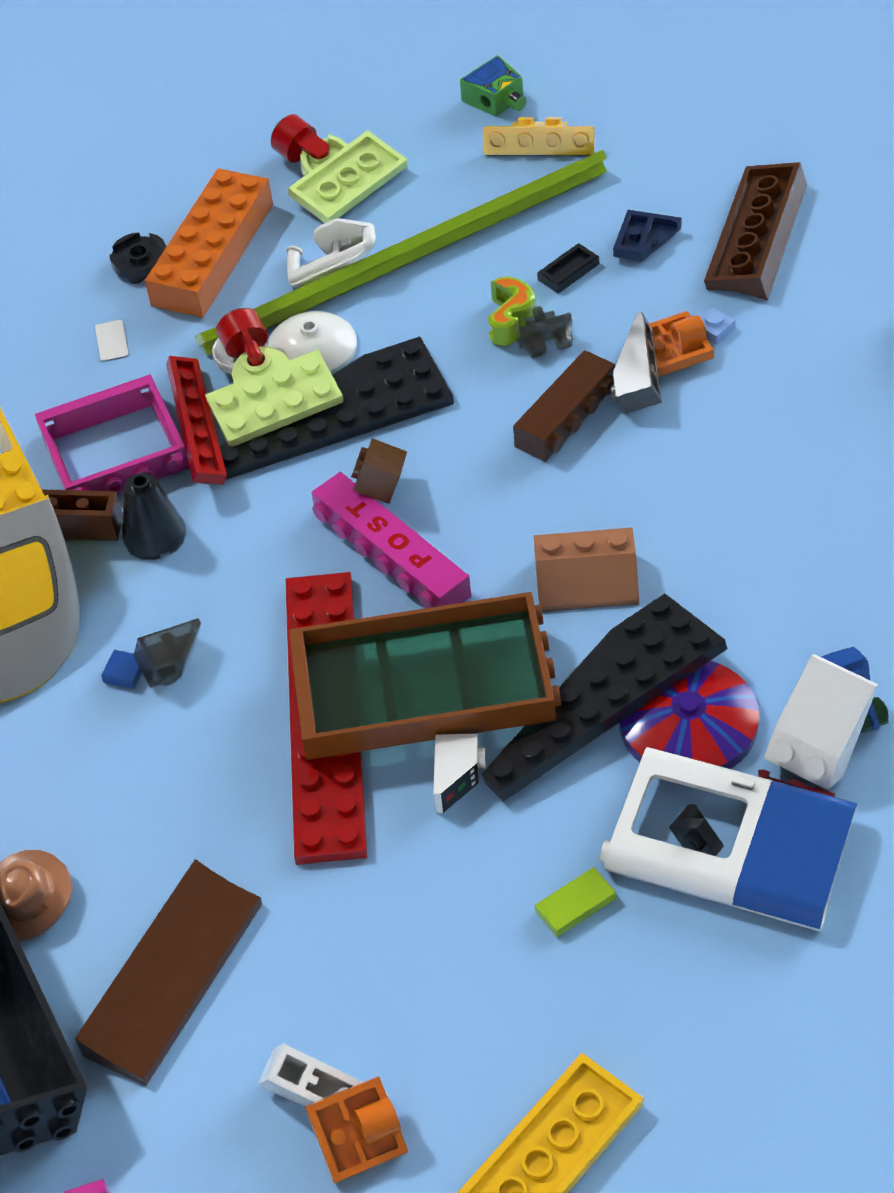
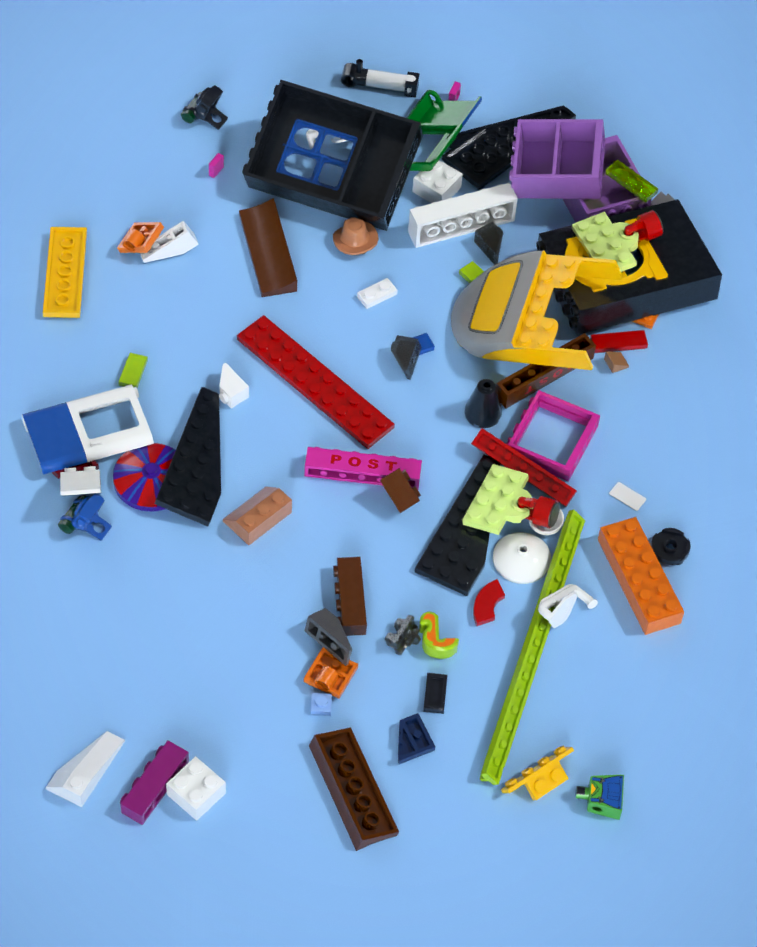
camera: 130 degrees right, 5 degrees up
(96, 787) = (377, 293): none -> white plate
(333, 171) = (625, 668): yellowish green plate -> none
(398, 323) = (486, 601): none -> red tile
(422, 675) = (279, 406): clear green window -> none
(695, 832) = (103, 418): black bracket -> none

